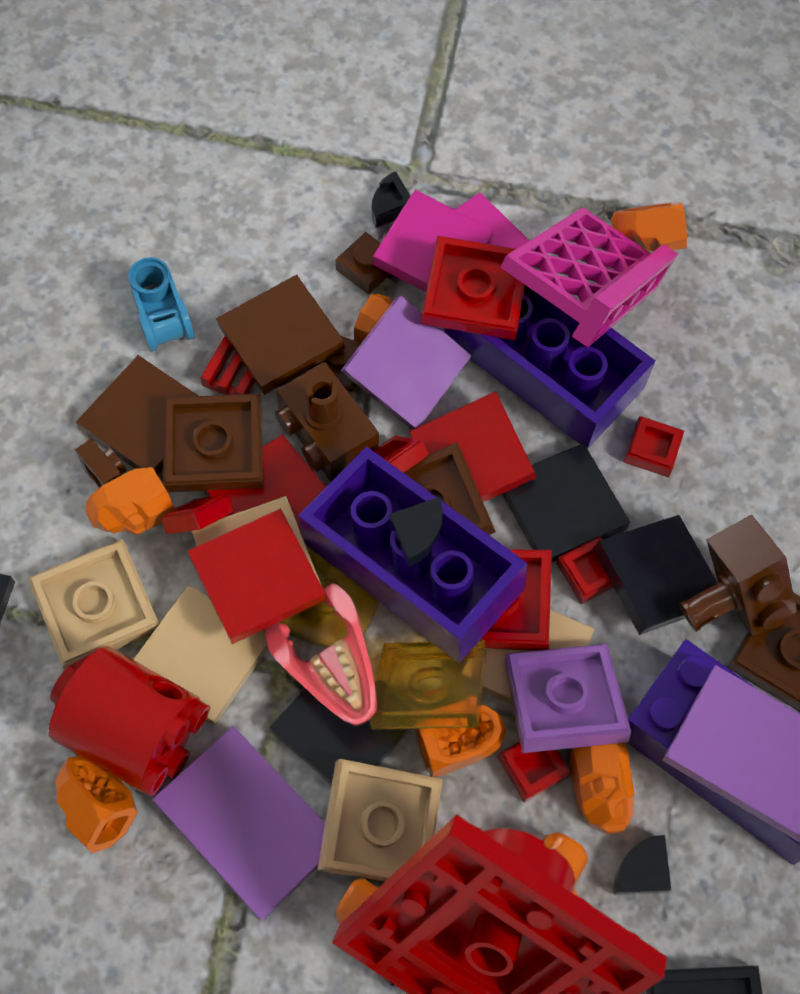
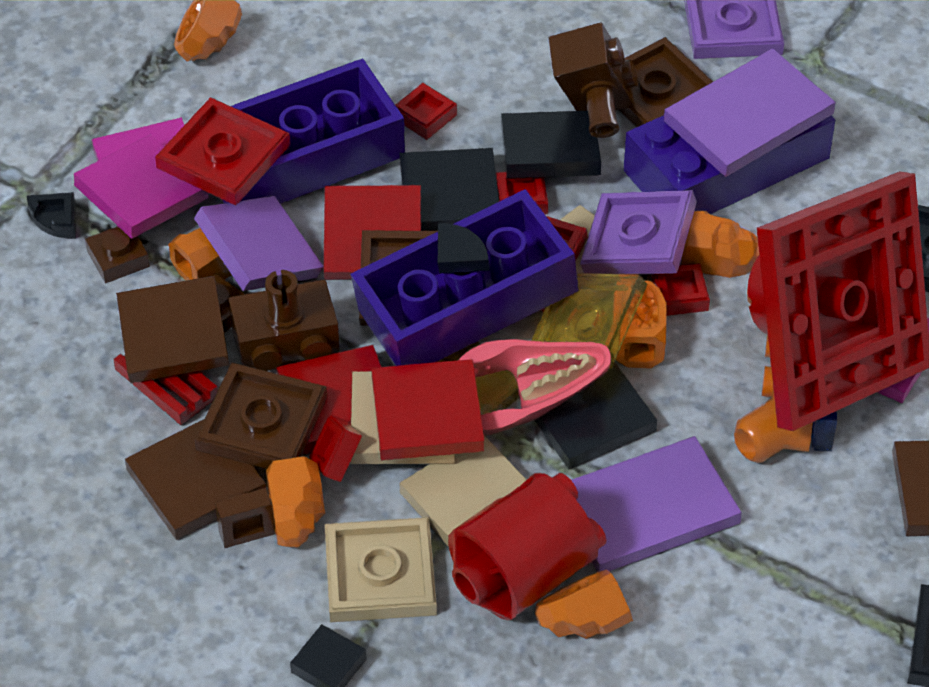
camera: 65 degrees left, 15 degrees down
(159, 309) = (74, 424): dark azure piece -> none
(376, 819) = (691, 403): tan tile -> none
(402, 452) = (341, 286): red tile -> none
(616, 290) = (255, 64): dark pink fence -> none

